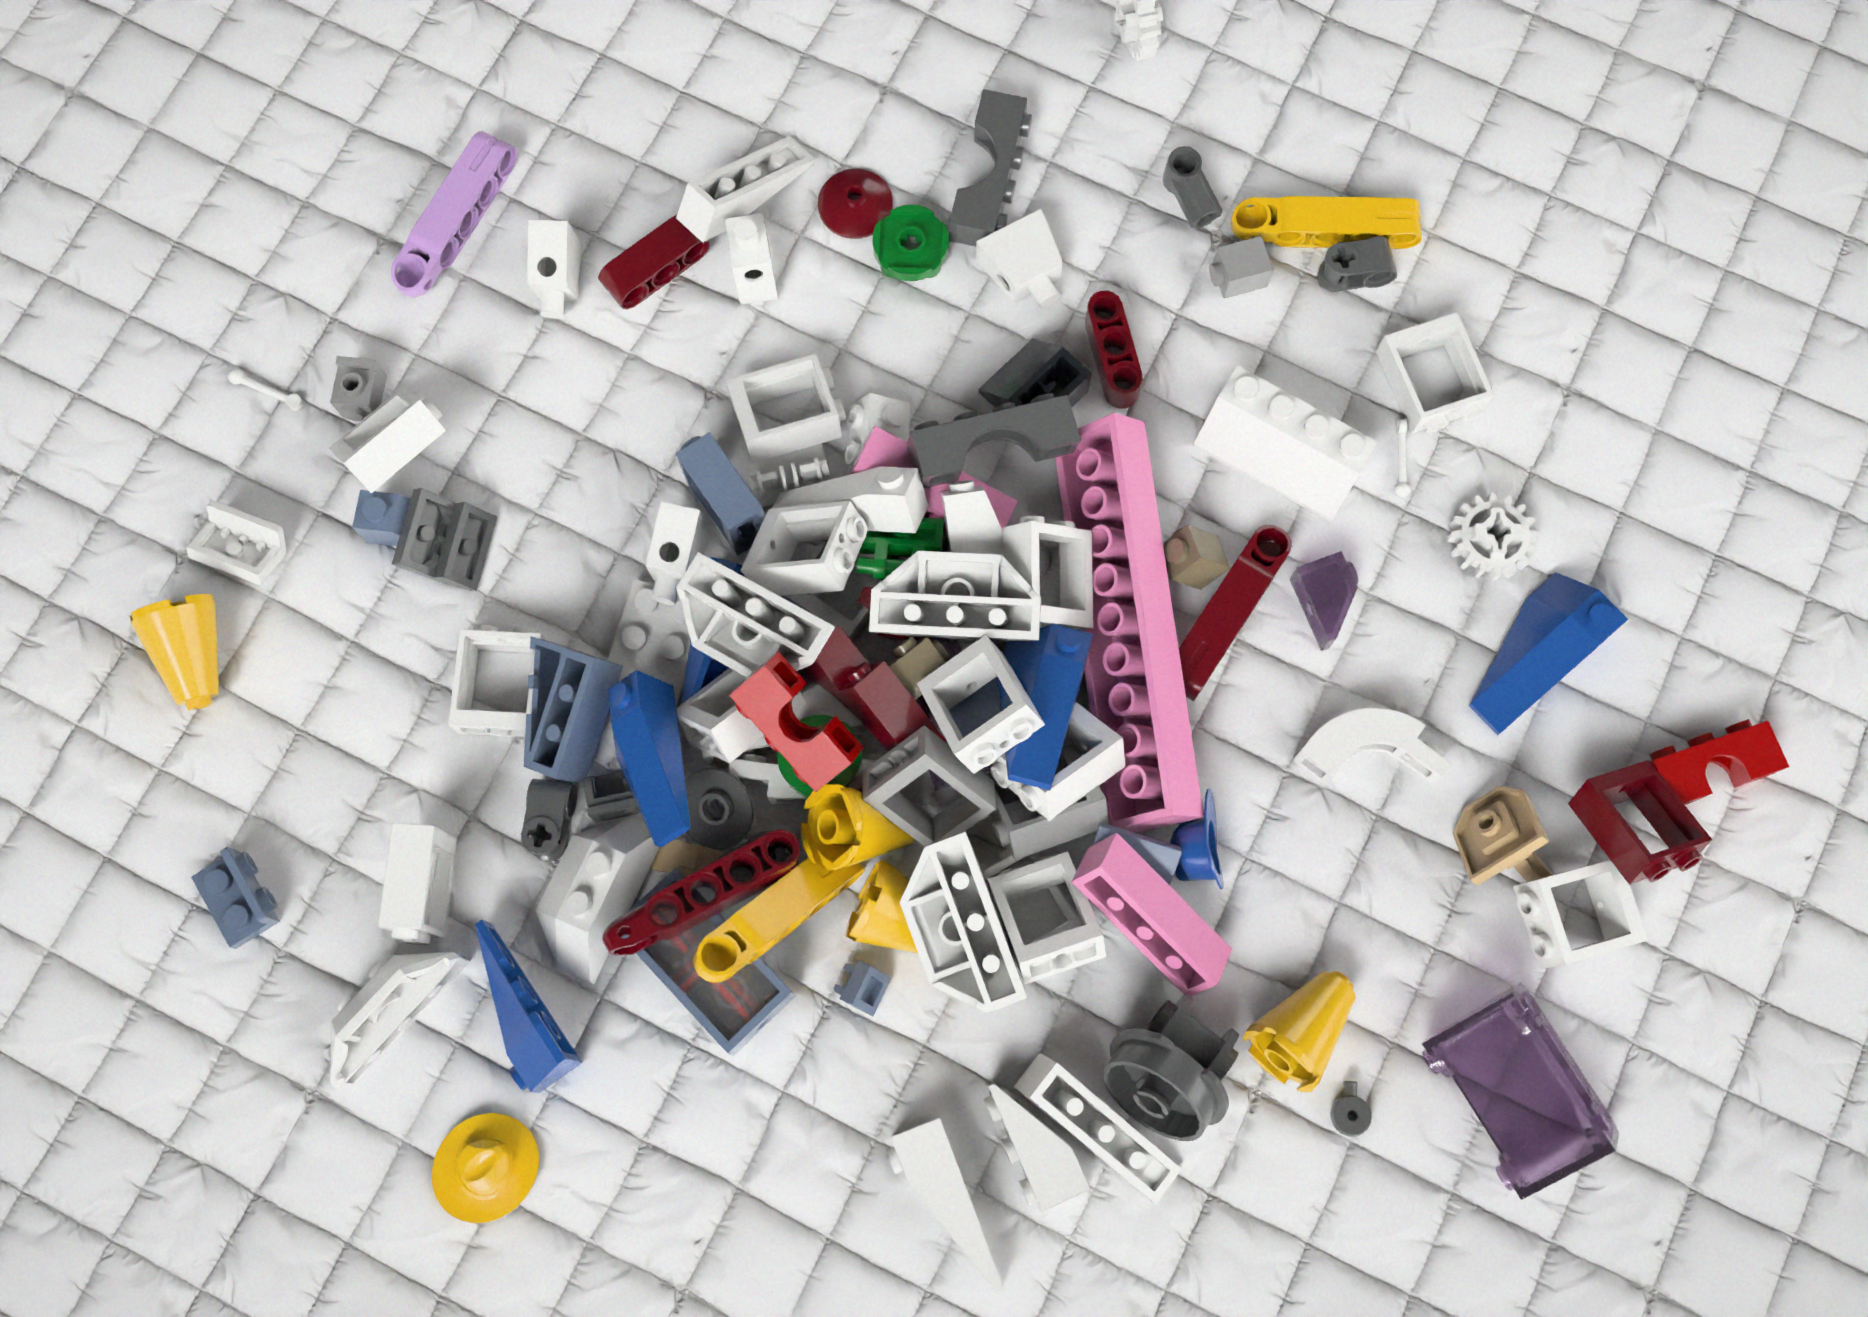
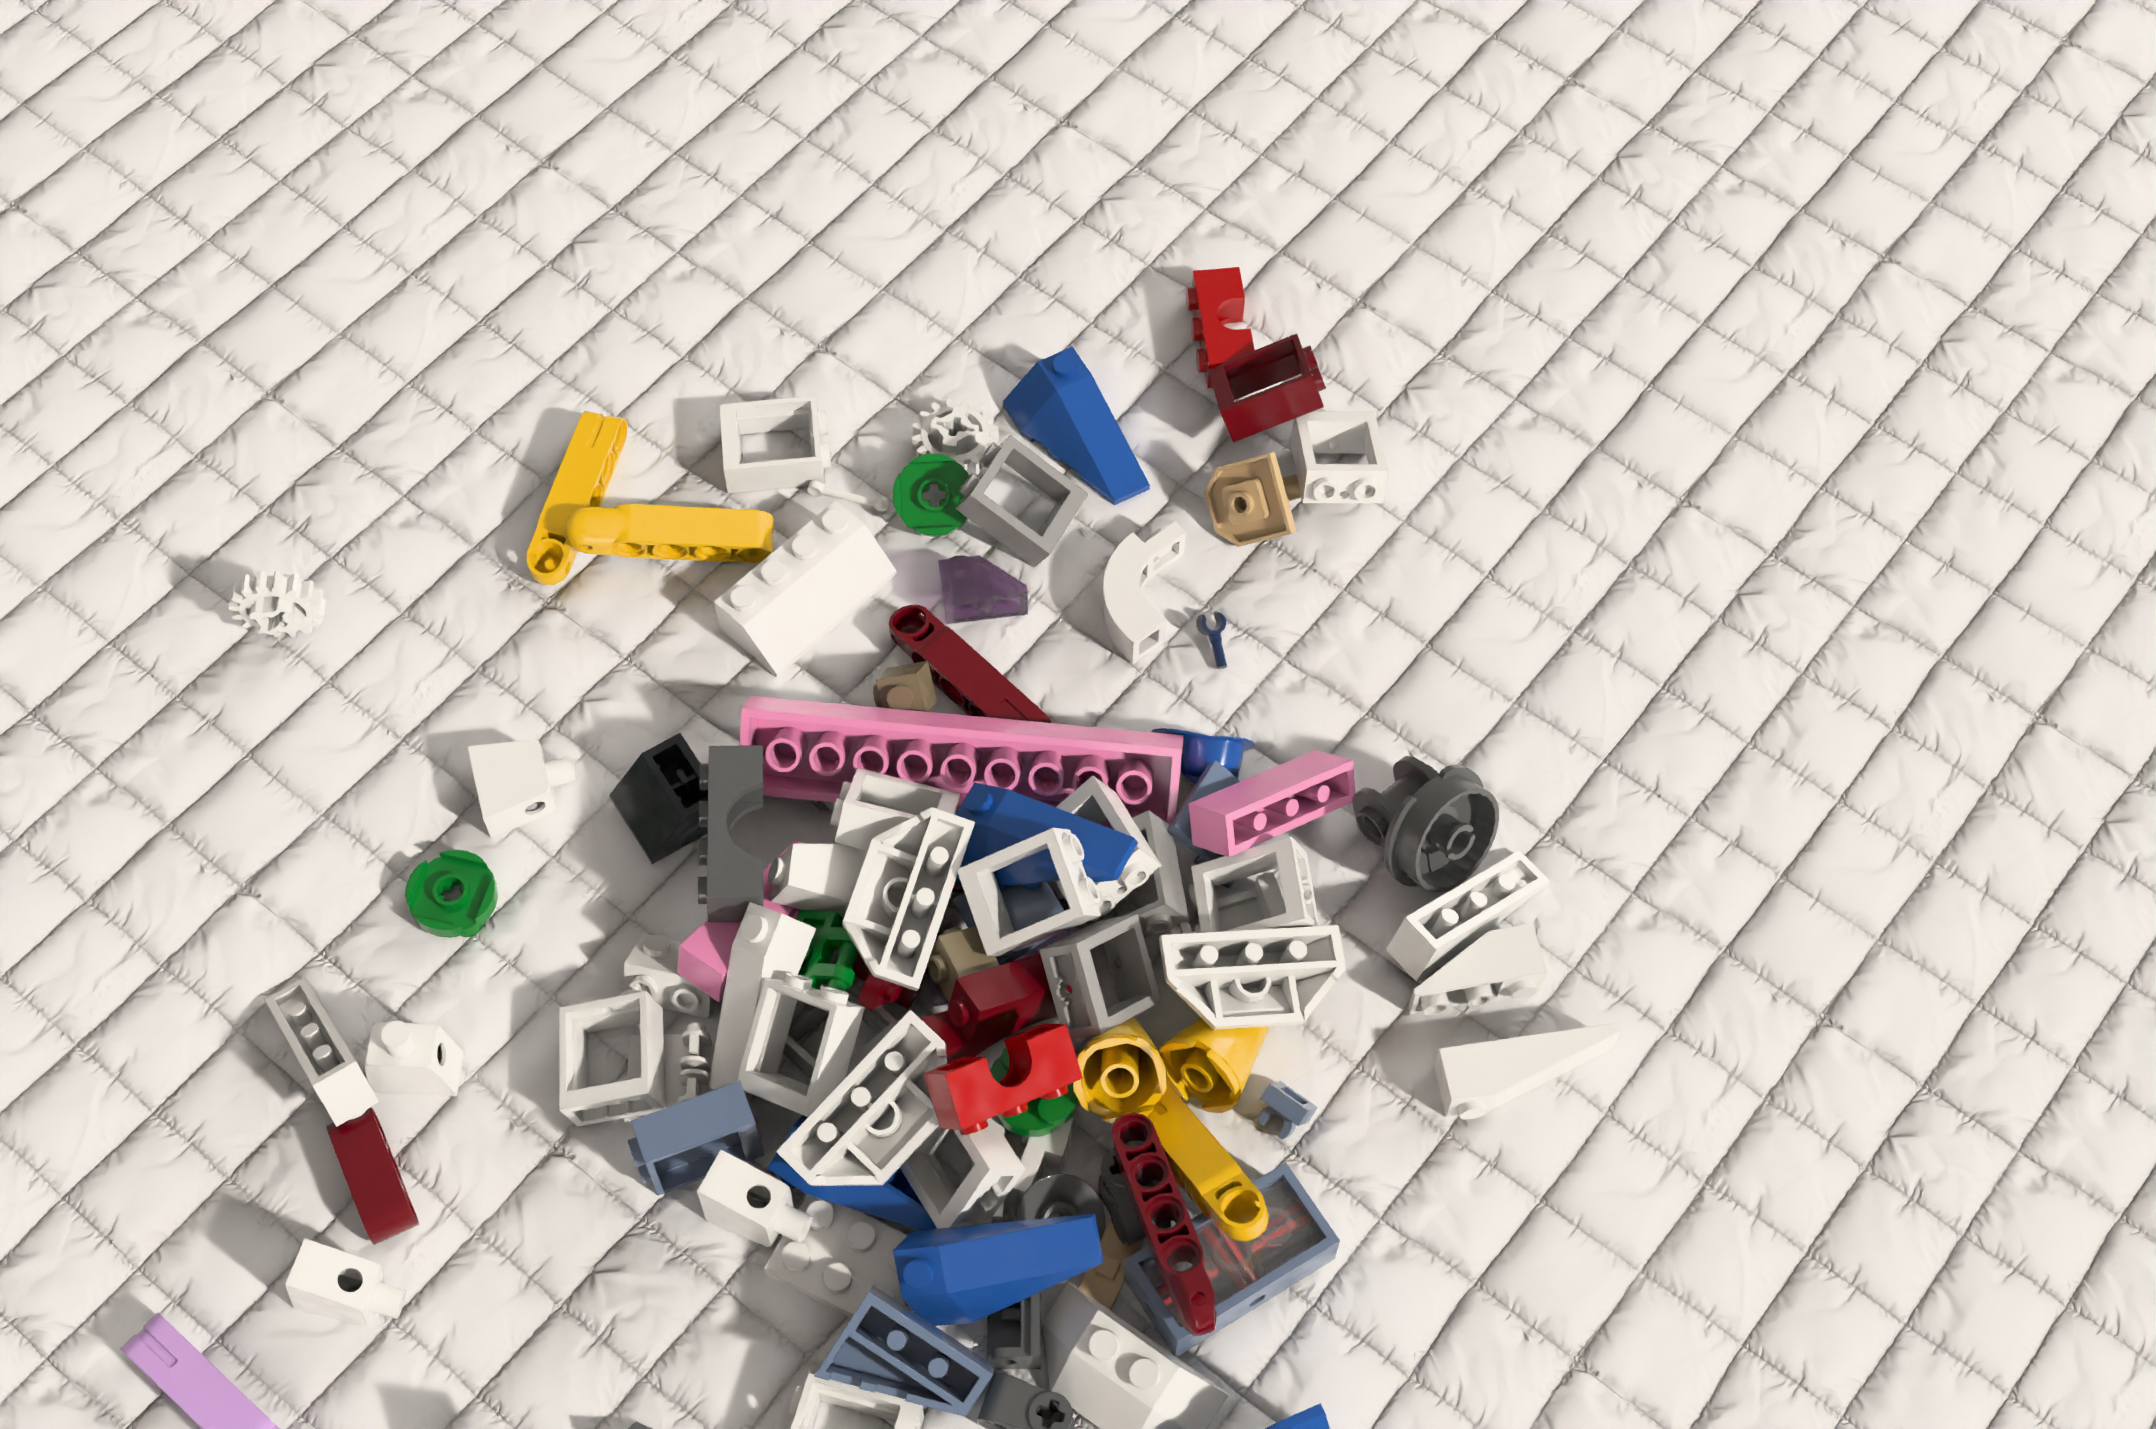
camera: 80 degrees left, 15 degrees down
(854, 217) = (380, 963): dark red dish -> none
(998, 130) = (349, 773): dark grey arch -> none
(1116, 333) = (632, 709): dark red beam -> none
(1191, 189) = (489, 608): dark grey piece -> none
(1241, 267) = (598, 582): light grey brick -> none
(1303, 1030) = (1408, 707): yellow cone -> none
(1307, 313) = (673, 532): none -> yellow piece
(1338, 831) = (1214, 636): none -> dark blue hand
(1353, 1103) = (1488, 693): dark grey piece -> none
(1359, 263) = (634, 475): dark grey piece -> none
(1397, 521) = (916, 480): none -> green plate
(1422, 652) = (1001, 524): none -> light grey window
(1524, 1091) = (1494, 545): clear purple windscreen -> none

